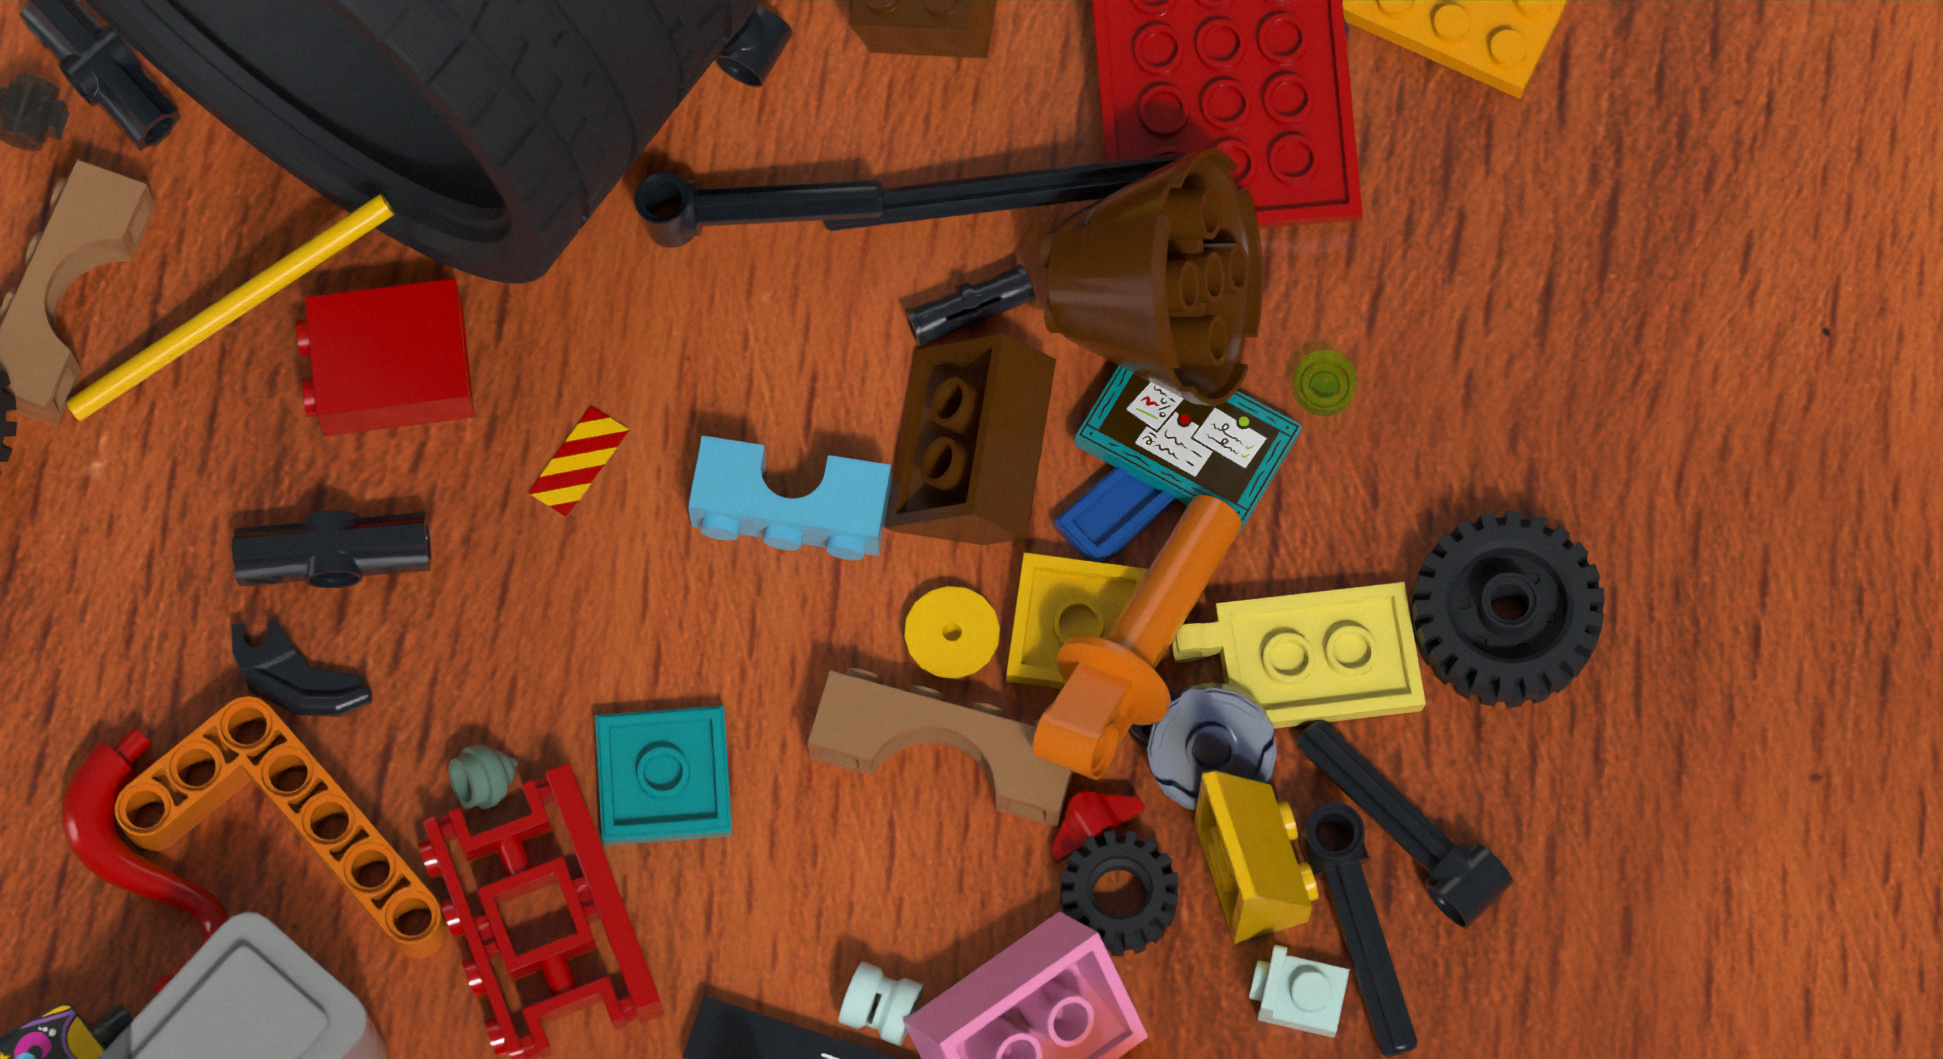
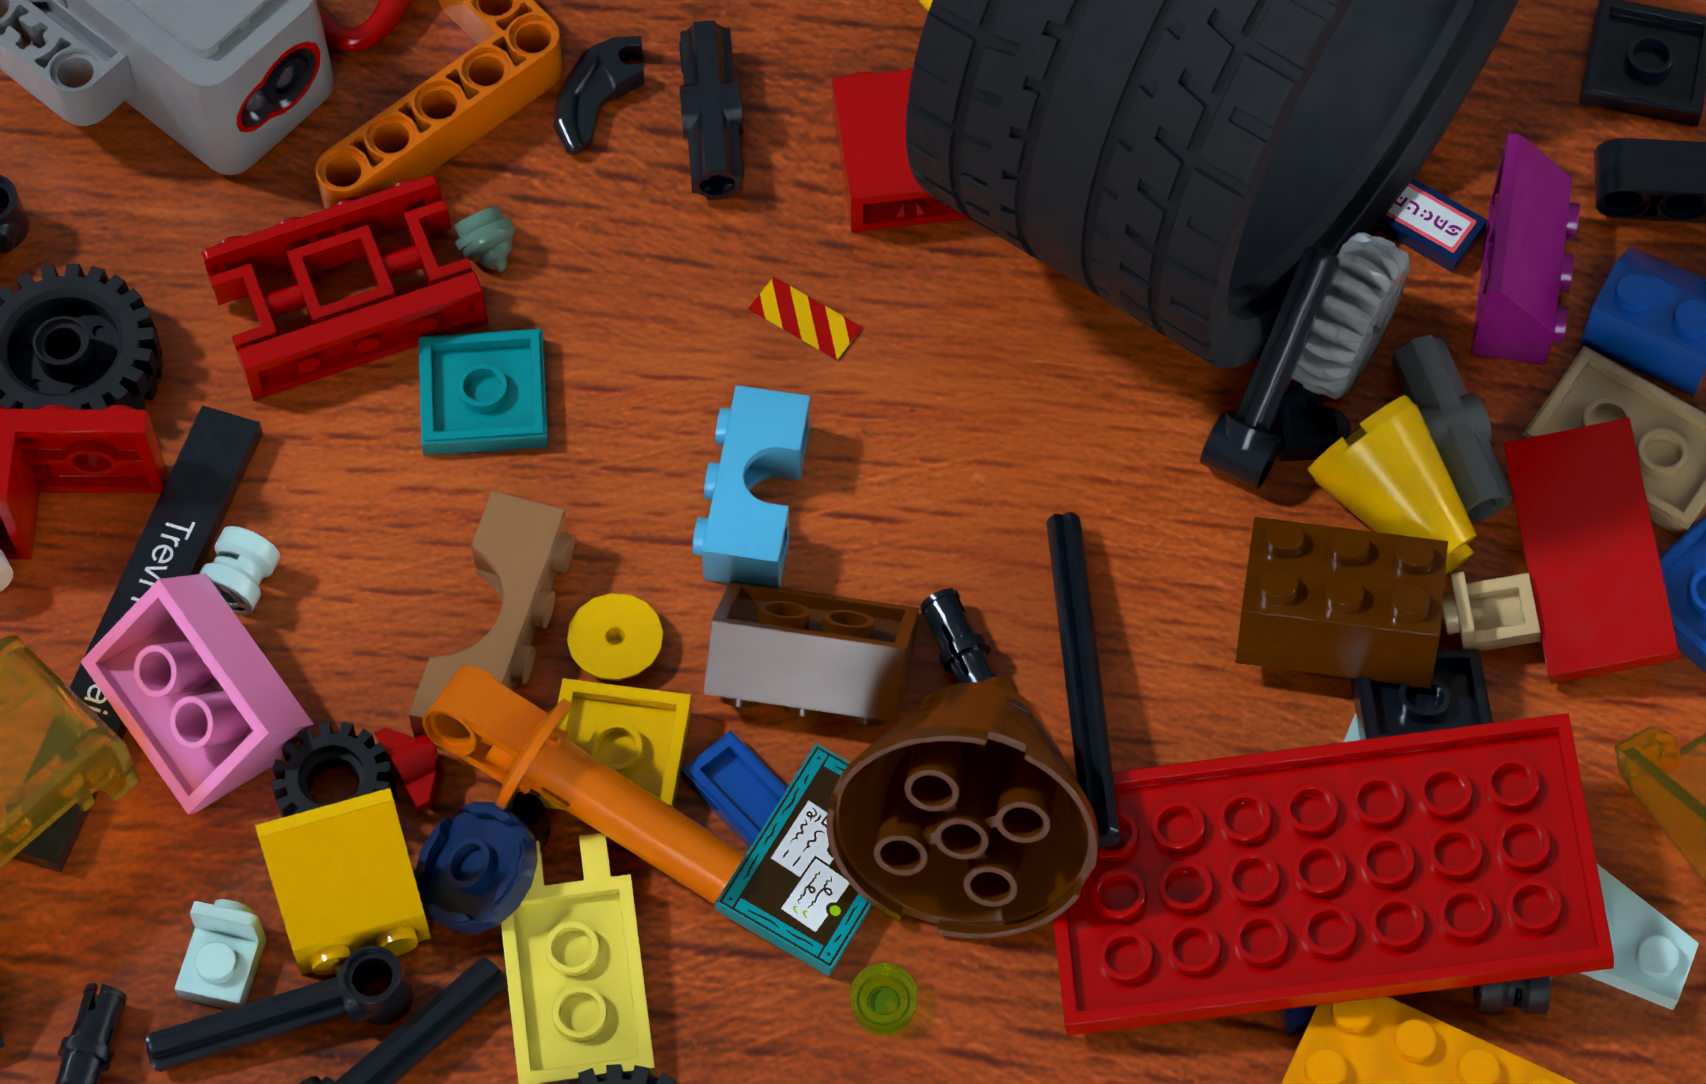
camera: 90 degrees right, 10 degrees down
(748, 205) = (1059, 393): black axle -> none

